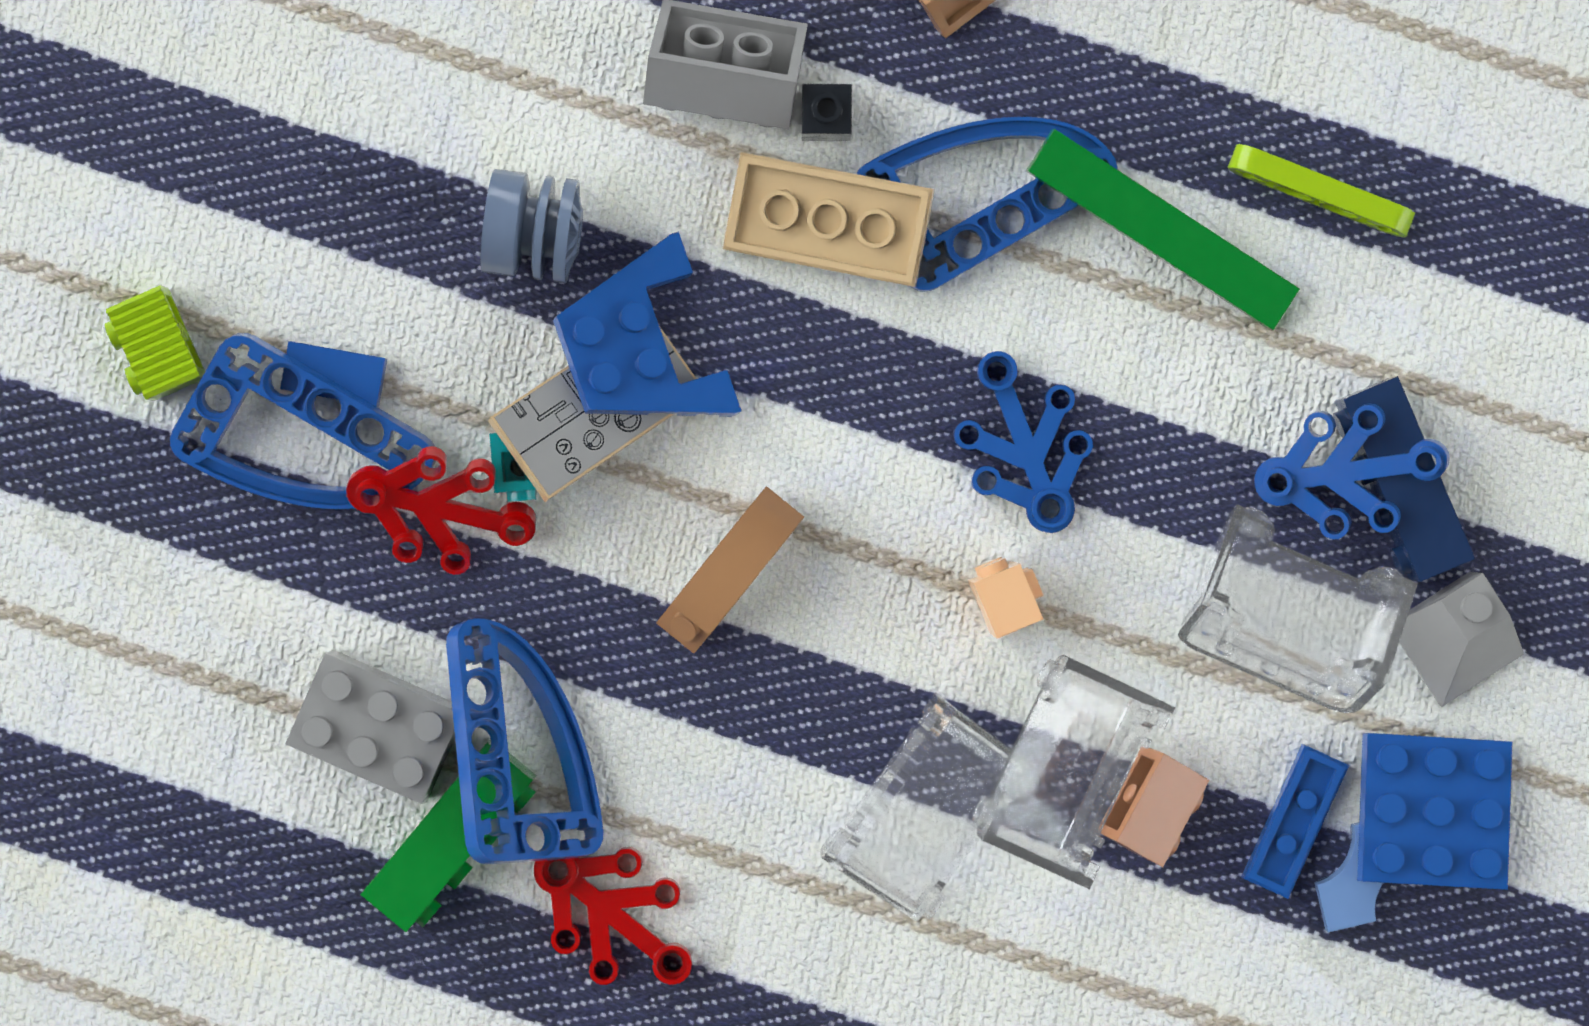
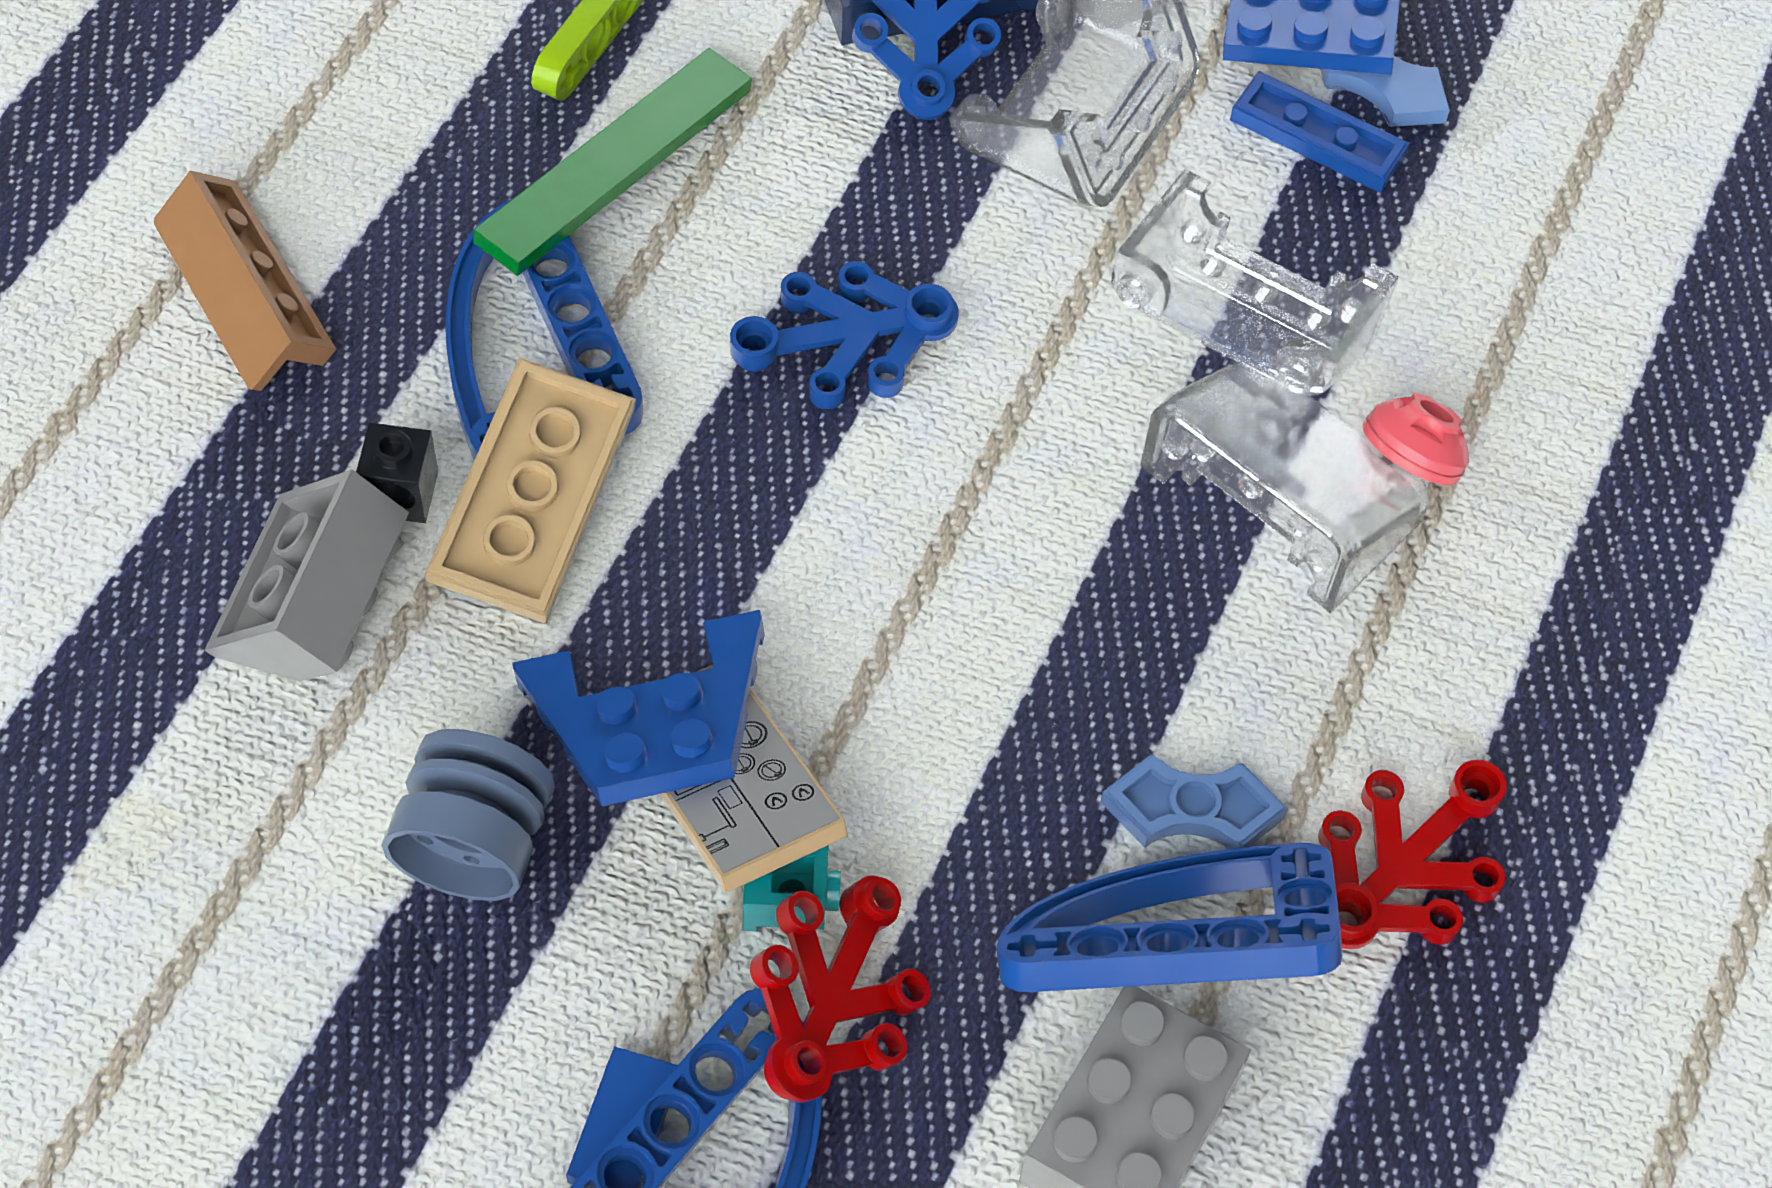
camera: 90 degrees left, 30 degrees down
(437, 852) = (1314, 1062): green brick -> none
(634, 730) = (1166, 802): none -> medium blue tile
(730, 569) = (977, 639): medium nougat arch -> none
(960, 902) = (1419, 437): none -> coral piece
(1006, 596) = (1034, 348): light nougat brick -> none
(1154, 806) = (1298, 234): nougat brick -> none

